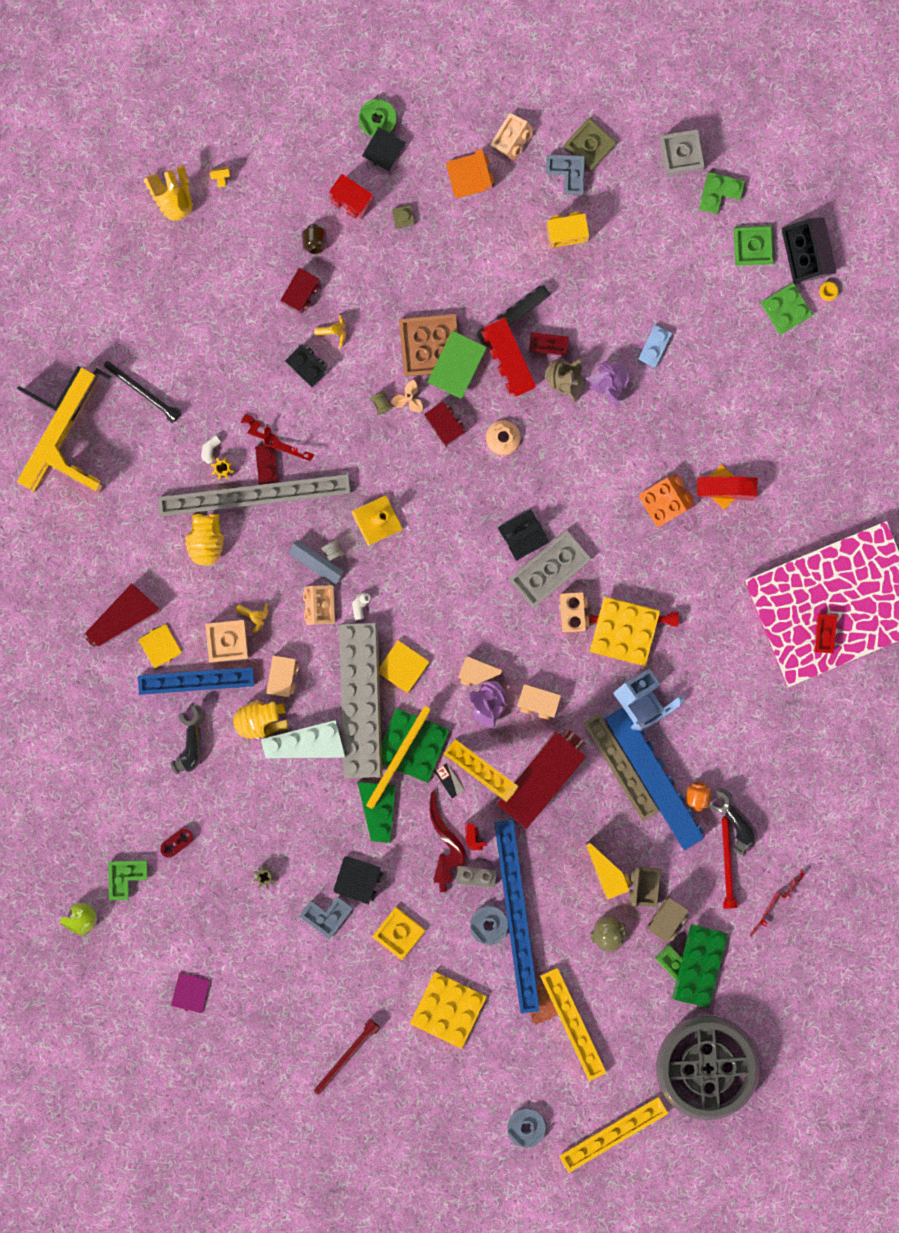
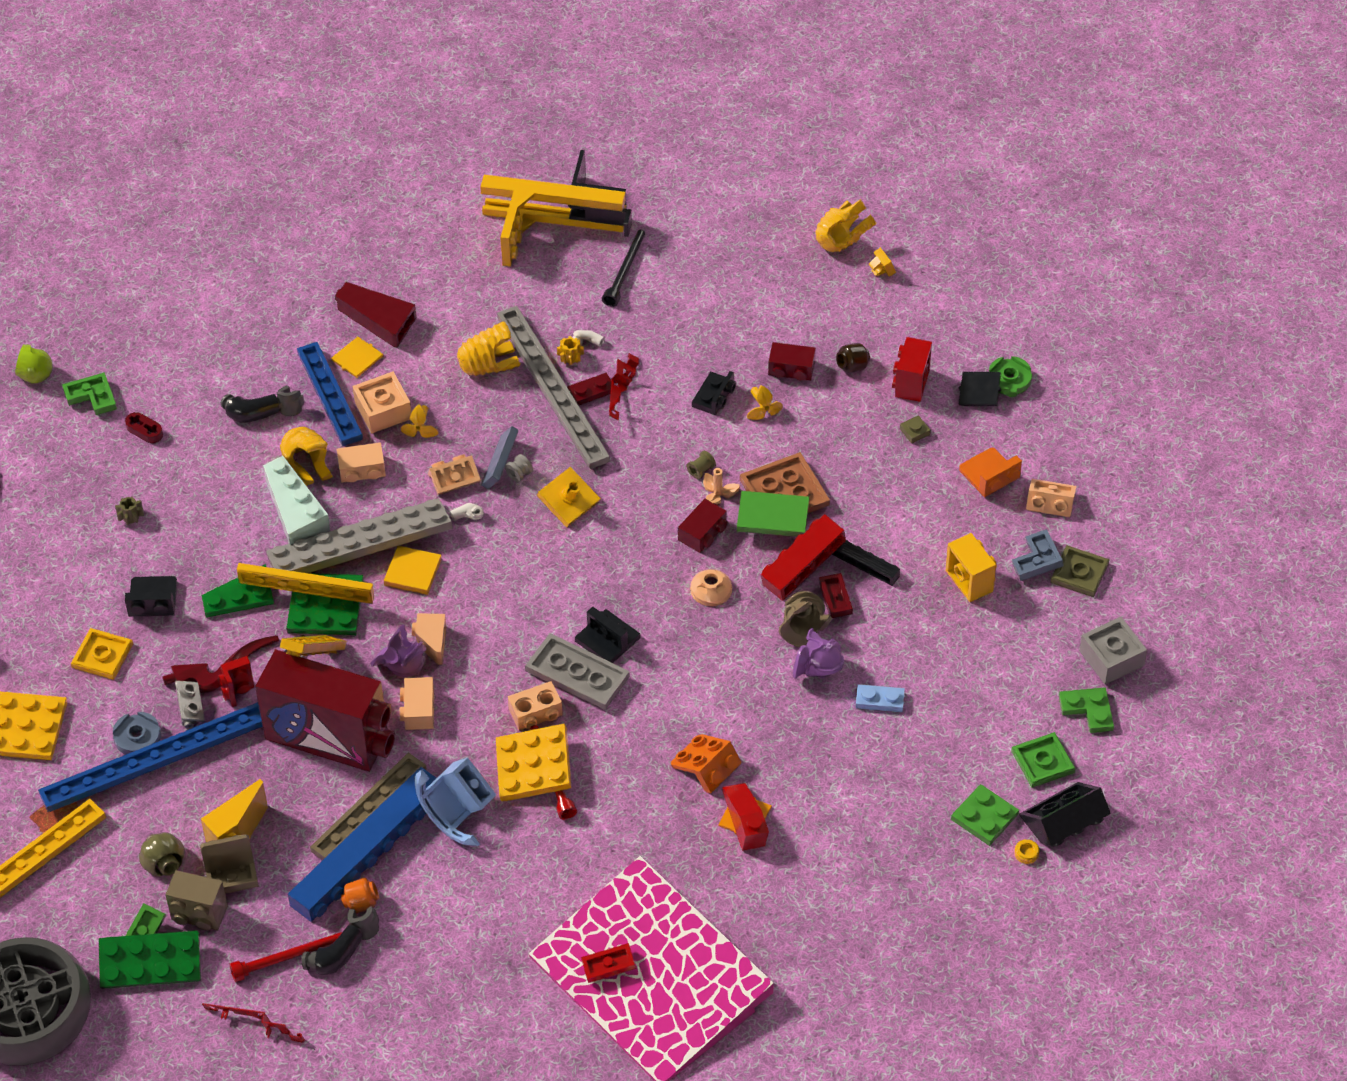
camera: 75 degrees right, 35 degrees down
(326, 921) = (97, 582): sand blue plate -> none

